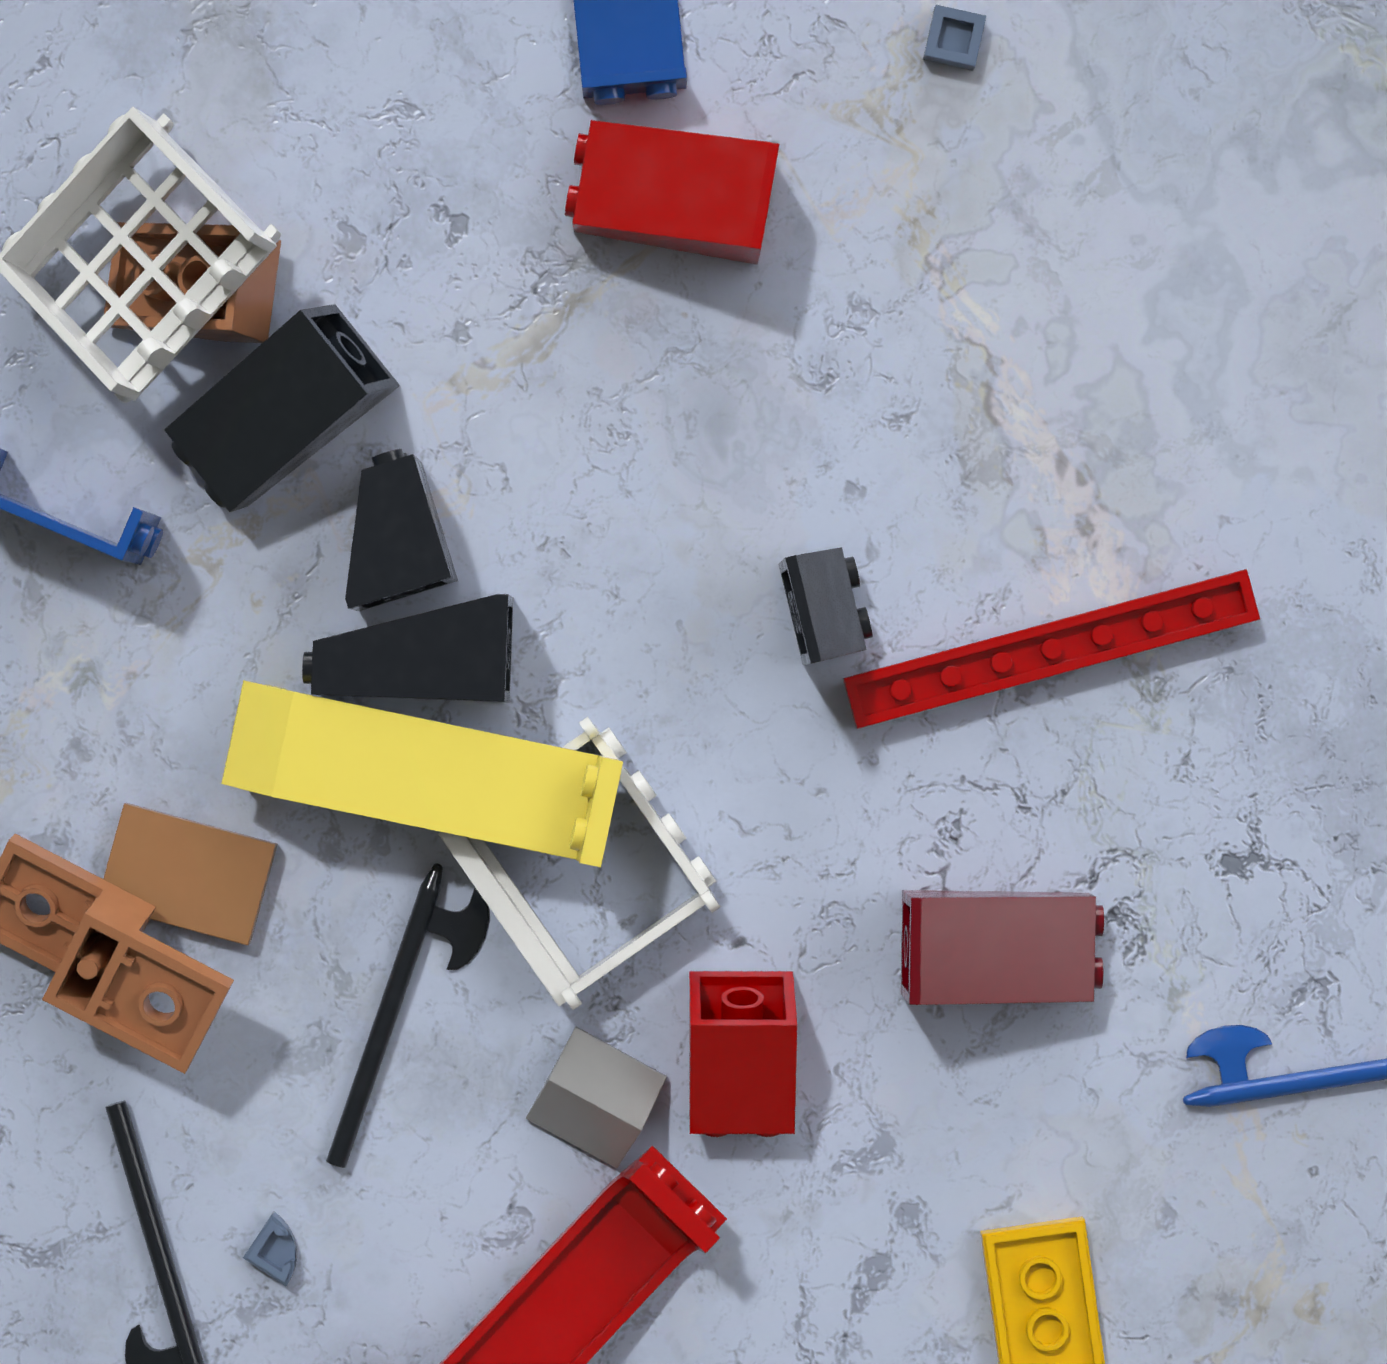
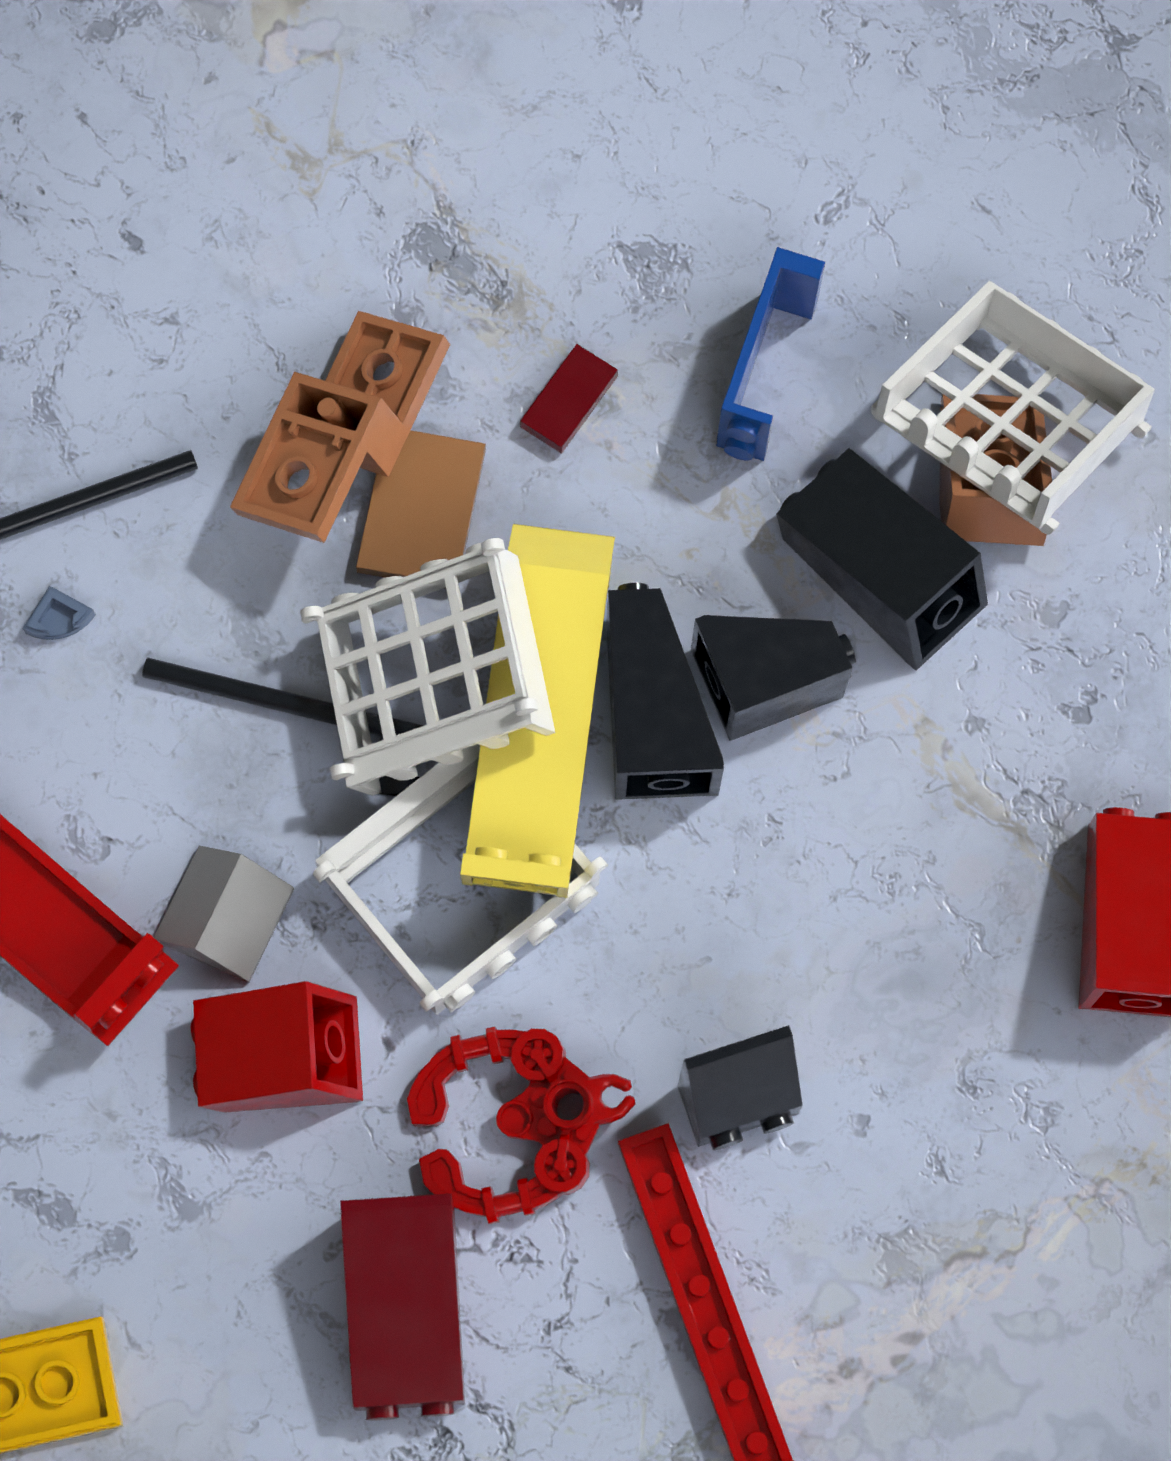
camera: 85 degrees right, 15 degrees down
(78, 712) = (569, 398): none -> dark red tile
(456, 868) = (439, 739): none -> white window
(824, 808) = (531, 1116): none -> red piece

